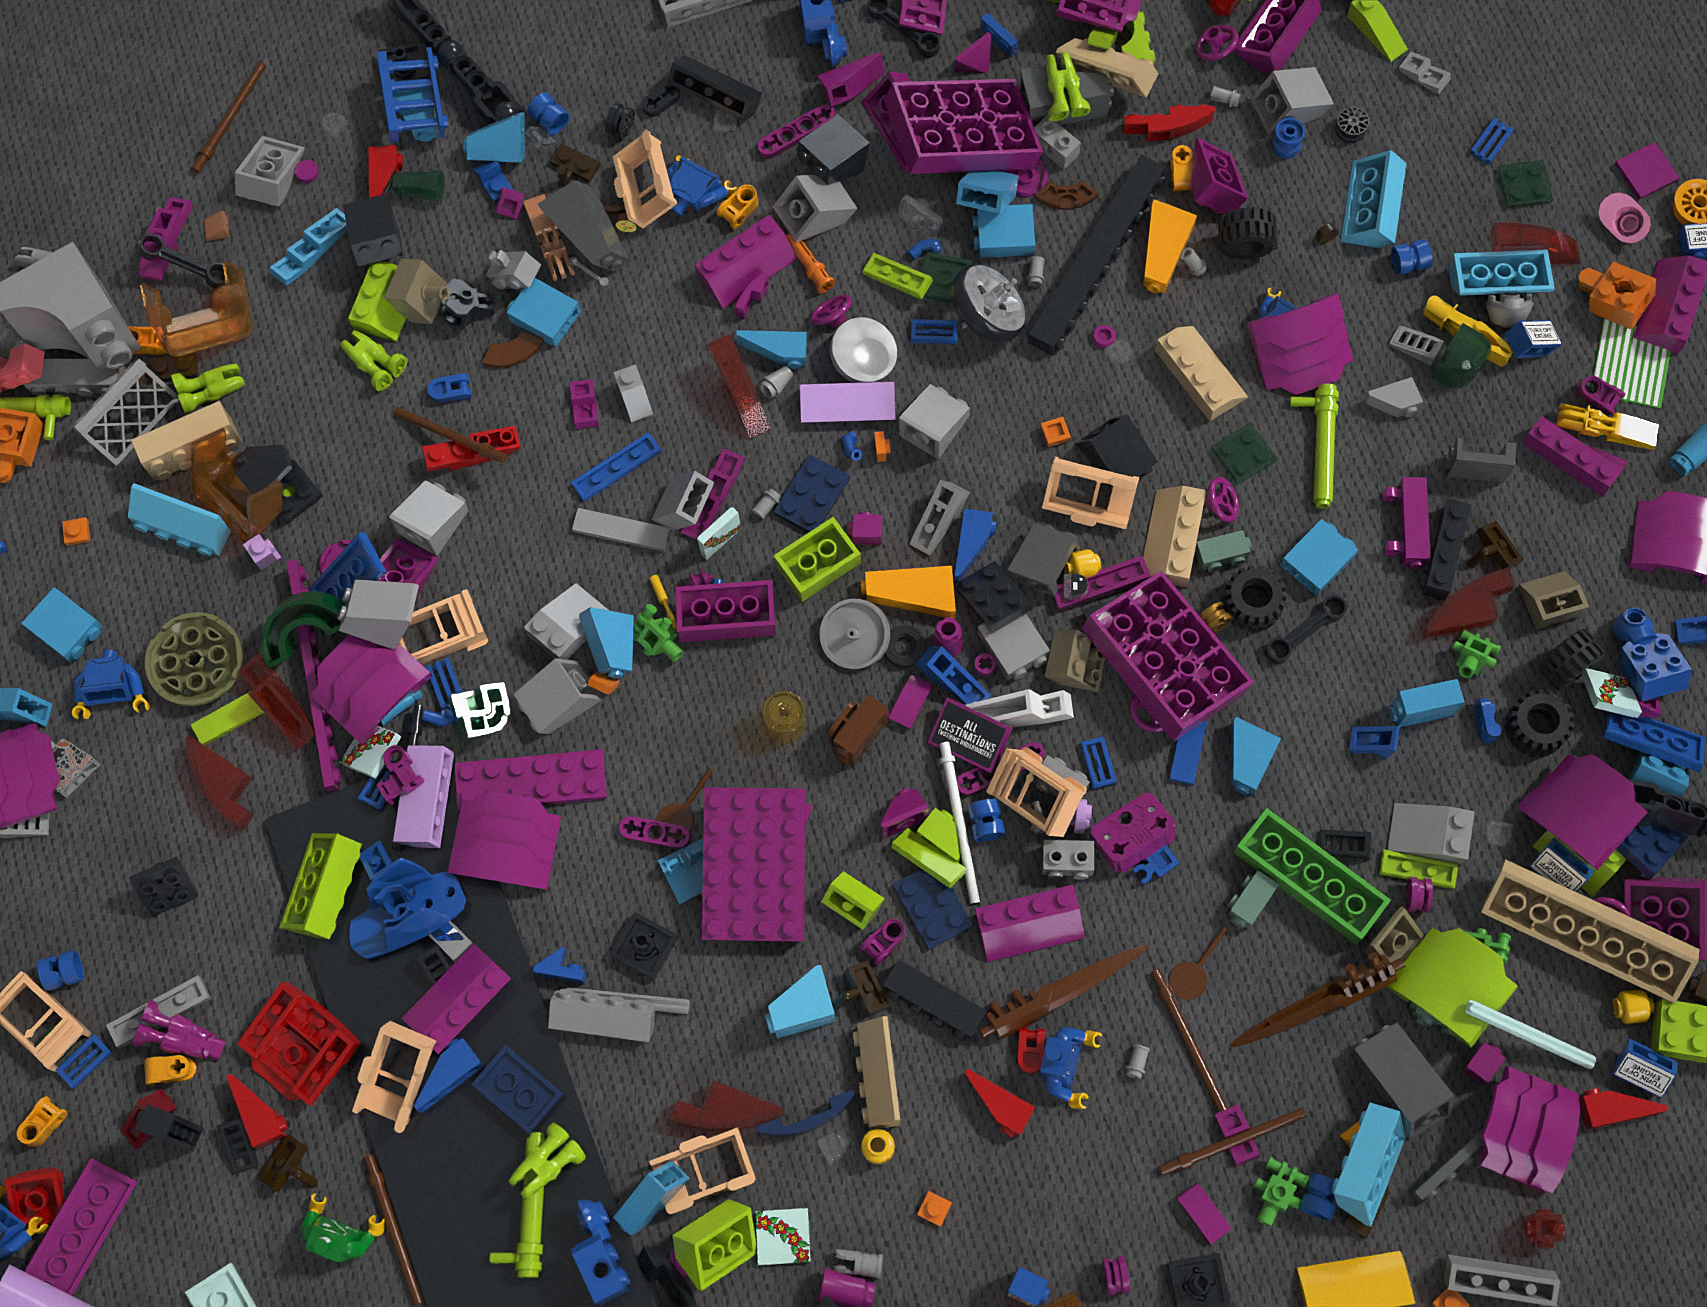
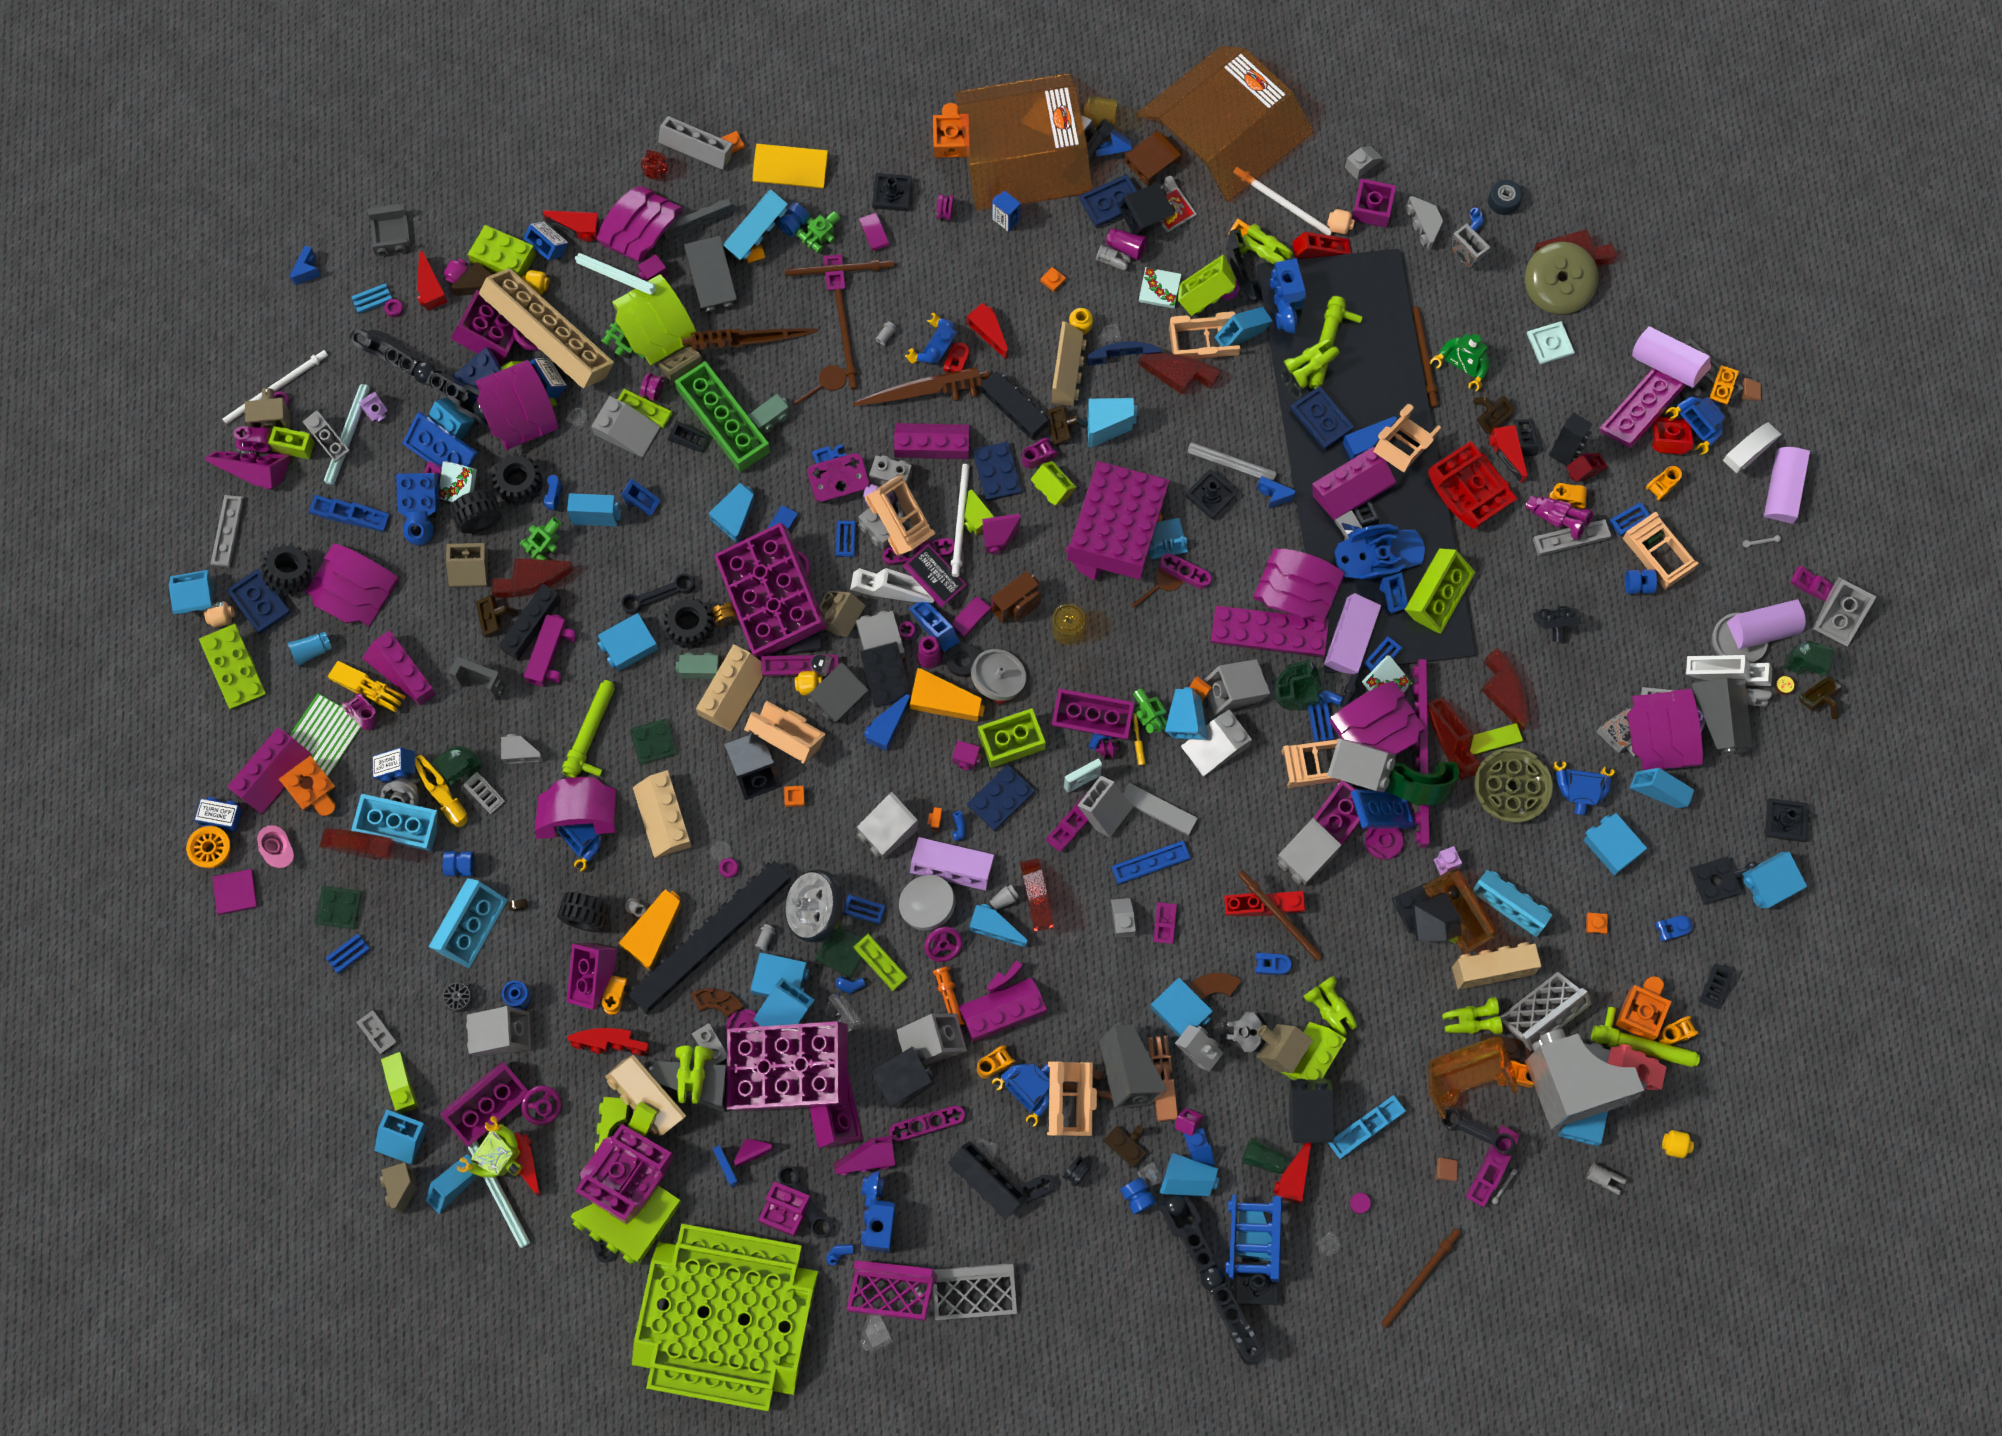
camera: 170 degrees left, 0 degrees up
(268, 171) = (1392, 1210): light grey slope -> none
(402, 775) = (1365, 646): magenta piece -> none
(601, 1015) = (1252, 451): light grey brick -> none
(766, 503) = (1039, 798): light grey pin -> none
(928, 858) = (988, 495): lime tile -> none
(939, 516) = (906, 751): light grey slope -> none
(982, 812) = (940, 514): blue wheel -> none
(1219, 501) = (686, 705): magenta piece -> none
(1225, 96) = (552, 1054): light grey pin -> none

